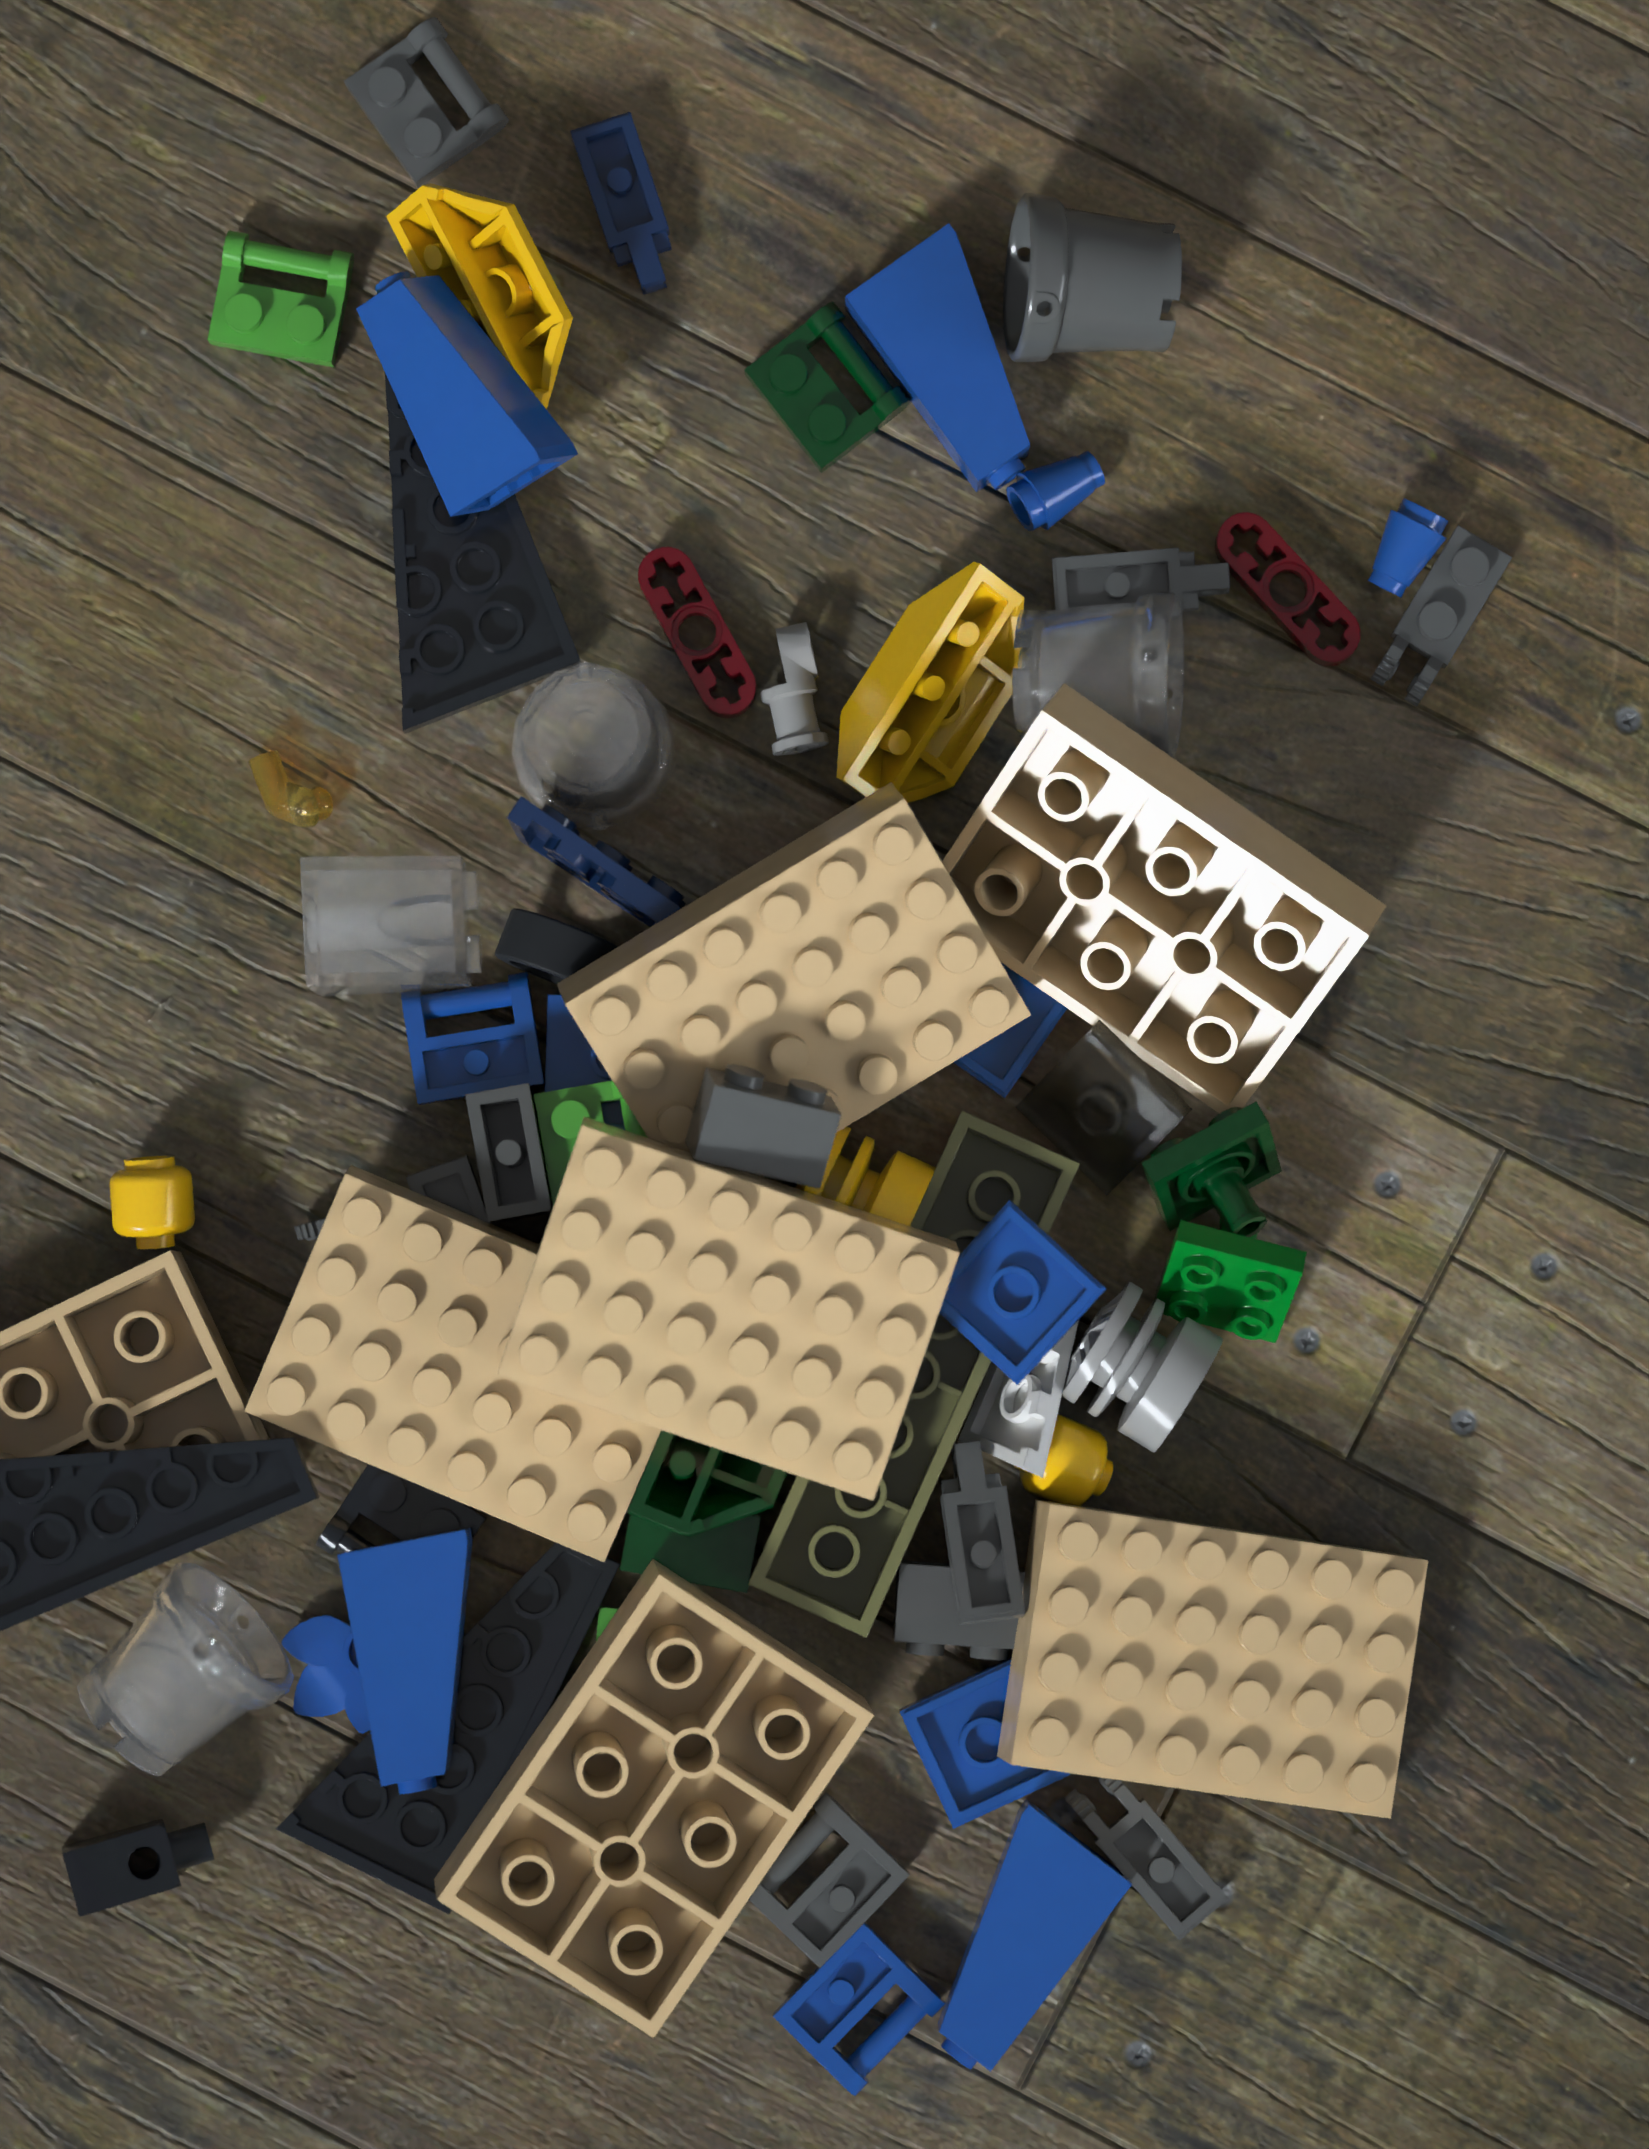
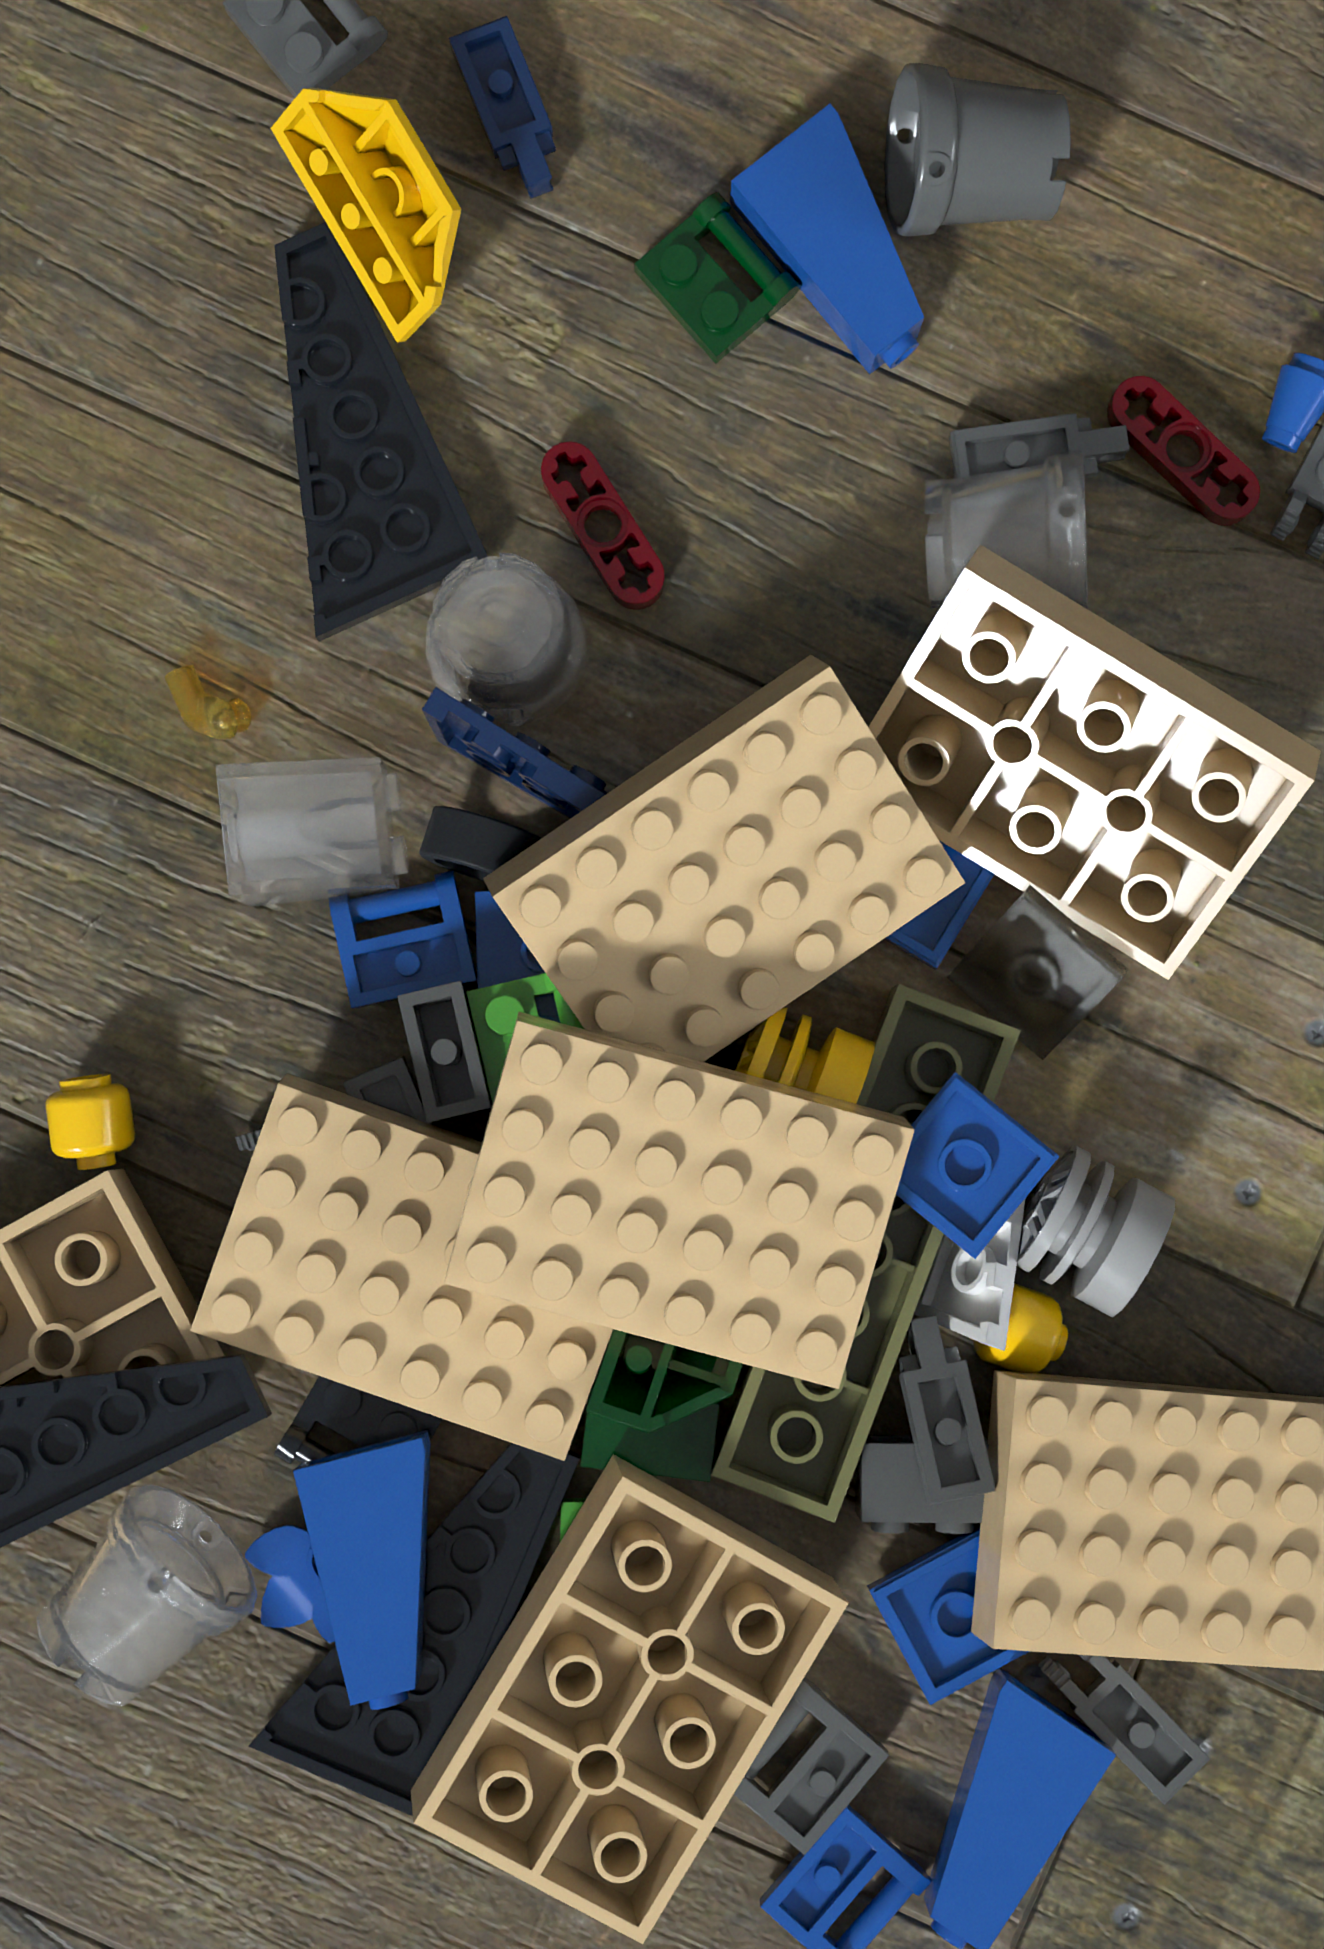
camera: 10 degrees left, 0 degrees up
(101, 1869) = (78, 1810): black torso -> none
(277, 319) = (172, 241): bright green plate -> none
(460, 395) = (354, 297): blue slope -> none
(763, 1125) = (703, 1010): dark grey brick -> none
(793, 701) = (702, 585): light grey connector -> none
(932, 688) = (843, 561): yellow wedge -> none
(1053, 490) = (947, 365): blue cone -> none
(1215, 1171) = (1156, 1030): dark green plate -> none
(1230, 1281) = (1176, 1136): green plate -> none

